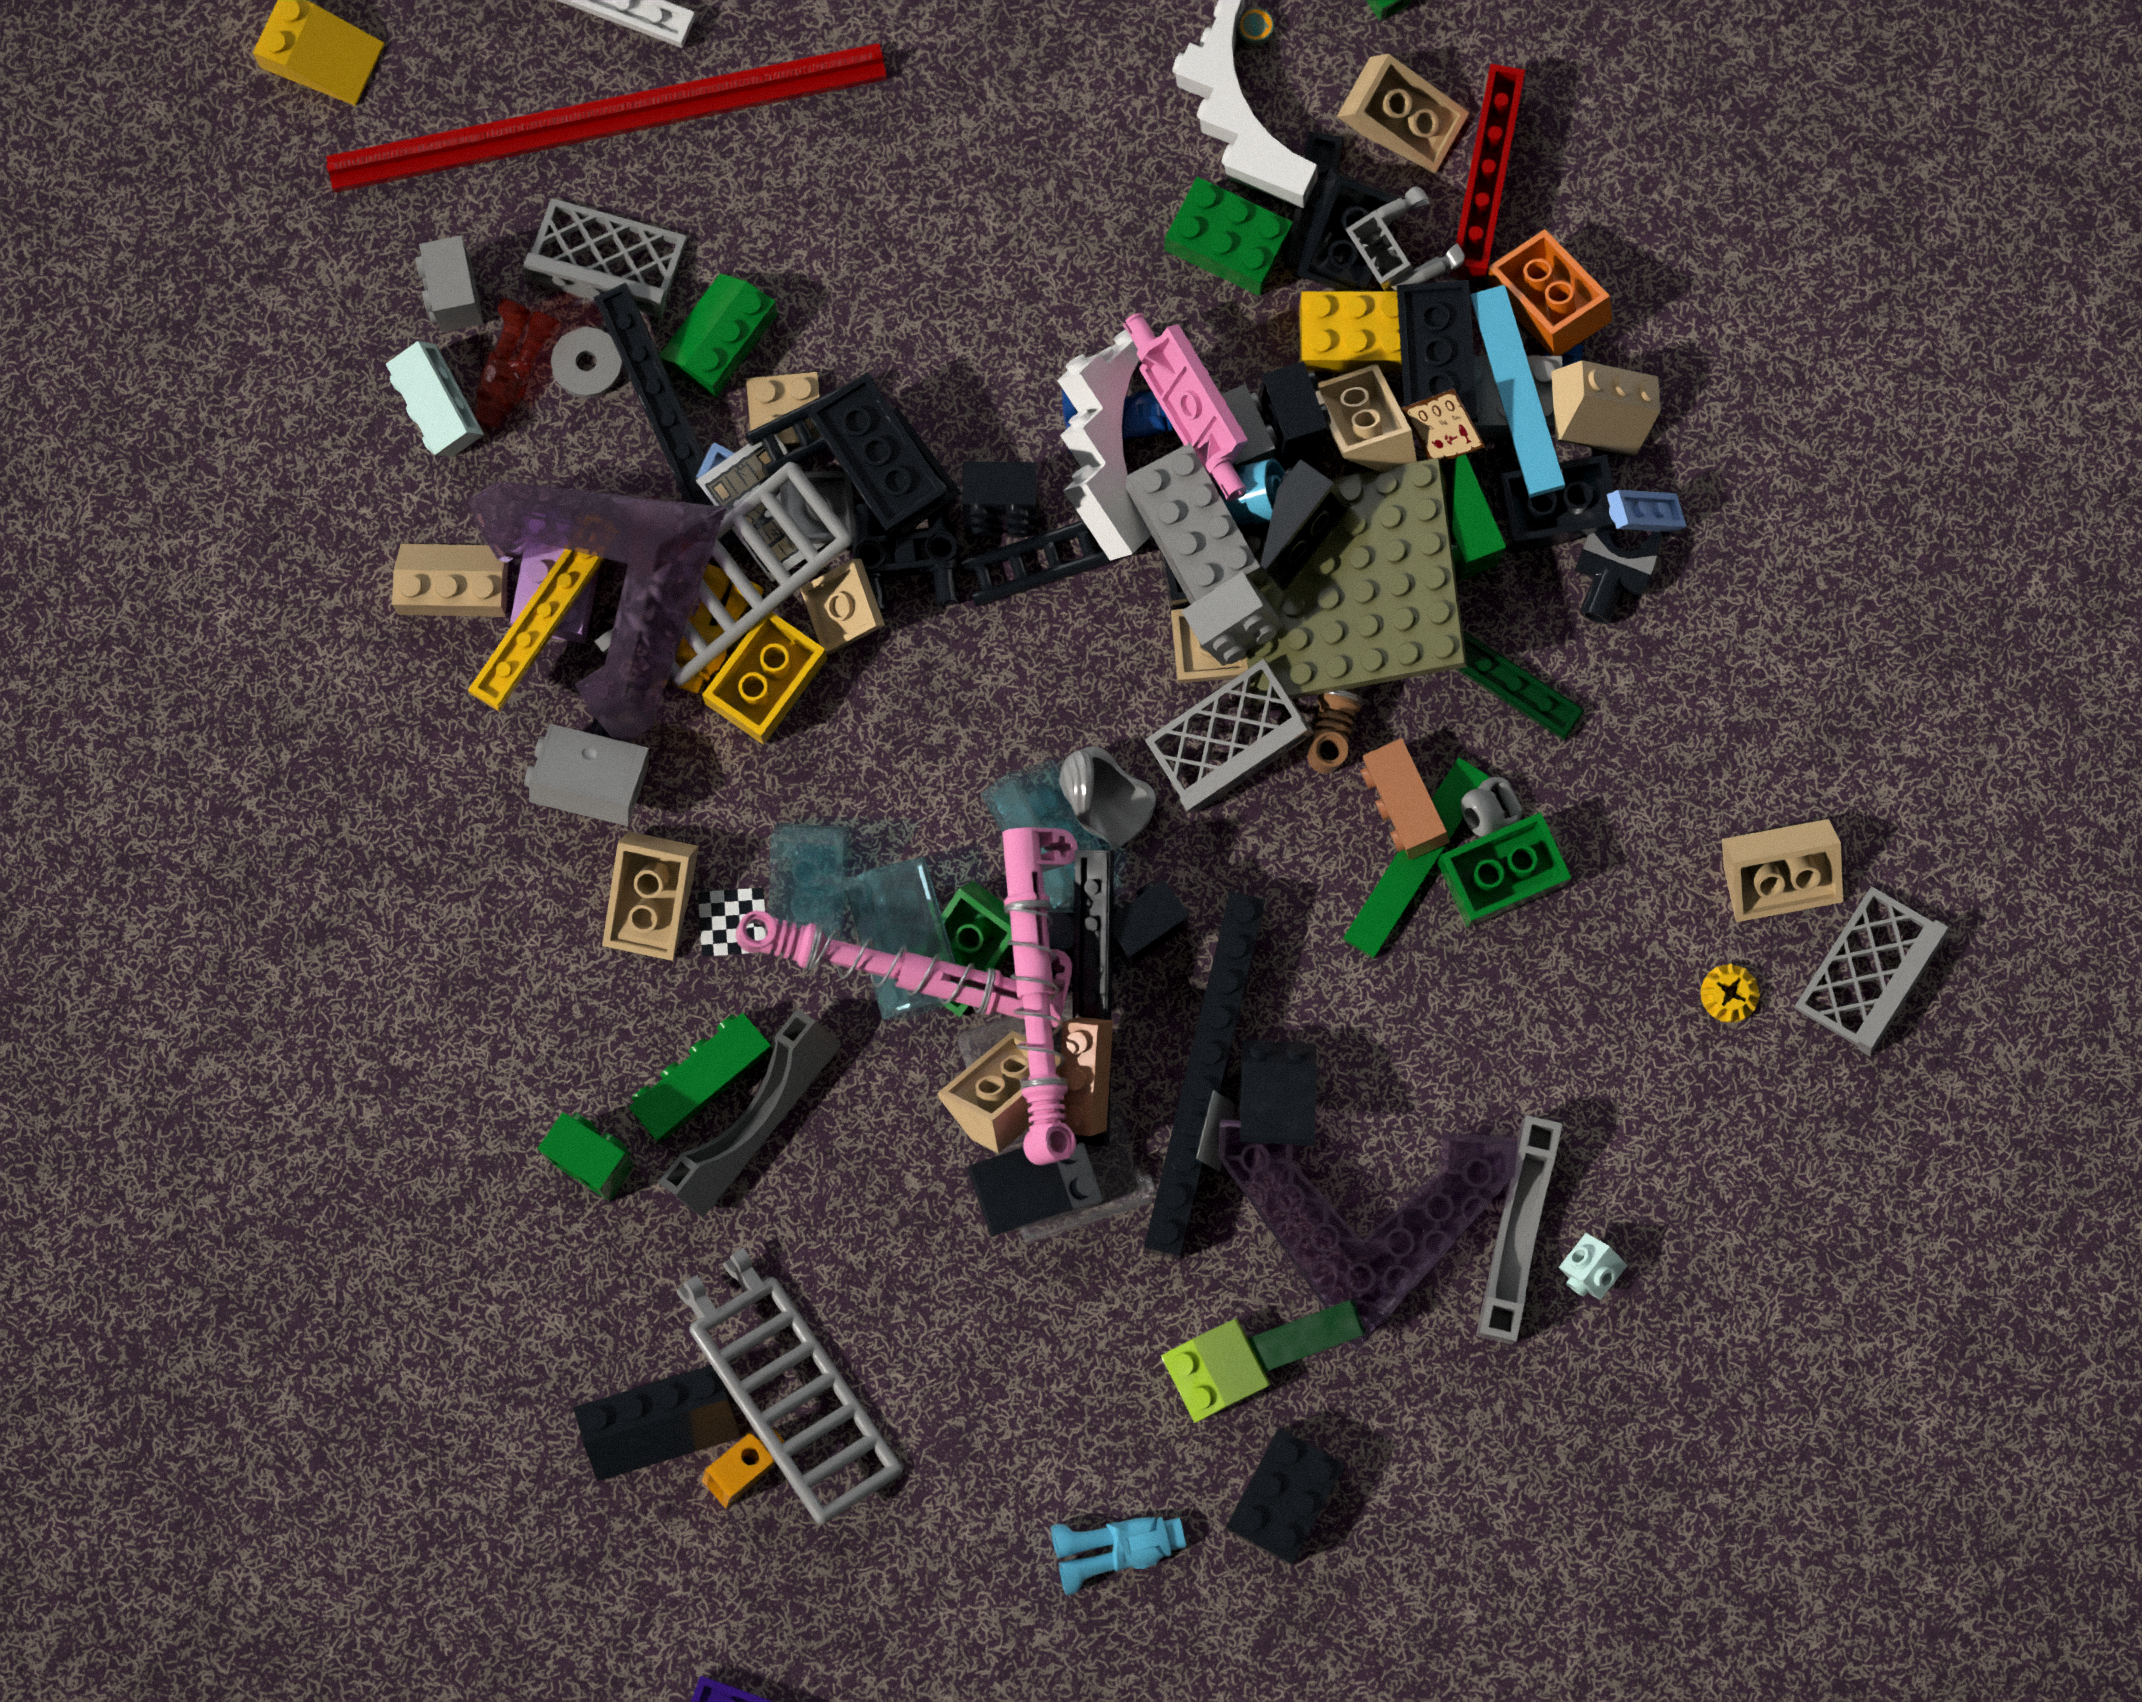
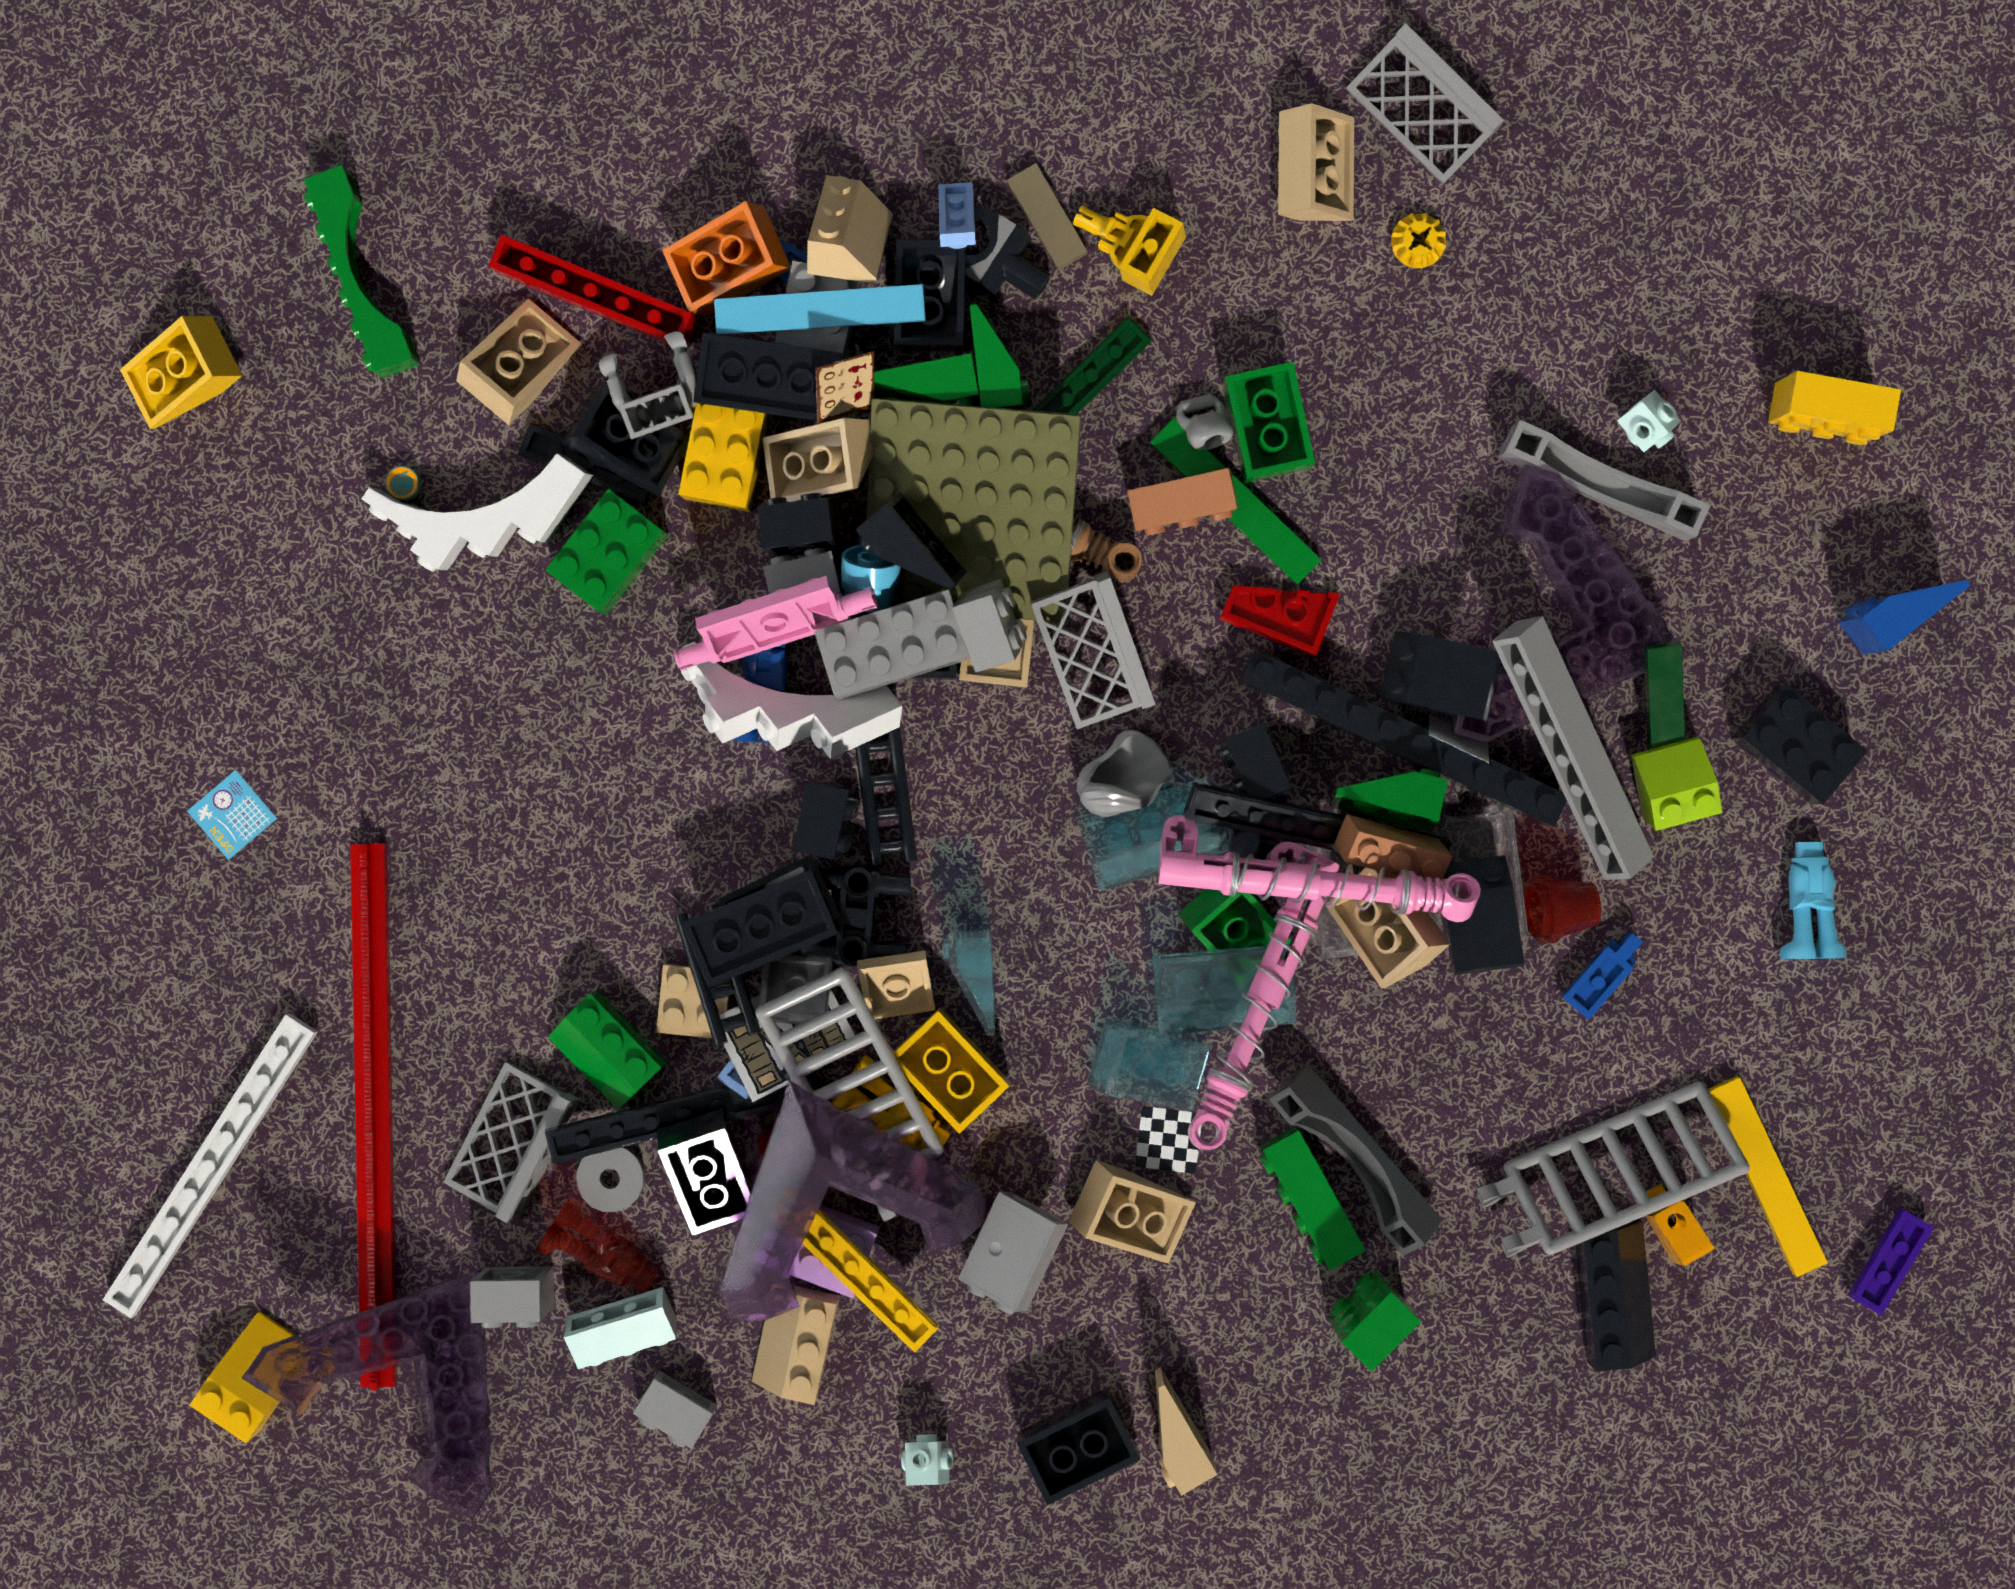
camera: 75 degrees left, 10 degrees up
(350, 733) = (927, 1461): none -> light aqua brick
(358, 470) = (674, 1410): none -> light grey brick
(360, 239) = (450, 1373): none -> clear purple wedge
(395, 884) = (1077, 1446): none -> black brick
(421, 985) = (1185, 1456): none -> tan slope
(616, 447) = (705, 1170): none -> black brick
(813, 1561) = (1769, 1179): none -> yellow tile
(875, 680) = (972, 966): none -> clear light blue slope
(995, 1338) = (1602, 975): none -> blue hinge
(1059, 1274) = (1560, 907): none -> clear red piece
(1140, 1077) = (1402, 799): none -> green slope
(1228, 1245) = (1573, 748): none -> light grey brick
(1306, 927) = (1286, 617): none -> red wing
(1442, 1562) = (1885, 621): none -> blue slope
(1493, 581) = (996, 370): none -> green slope
(1648, 1455) = (1834, 407): none -> yellow brick
(1655, 706) = (1136, 244): none -> yellow brick
(1668, 608) = (1047, 217): none -> dark tan tile

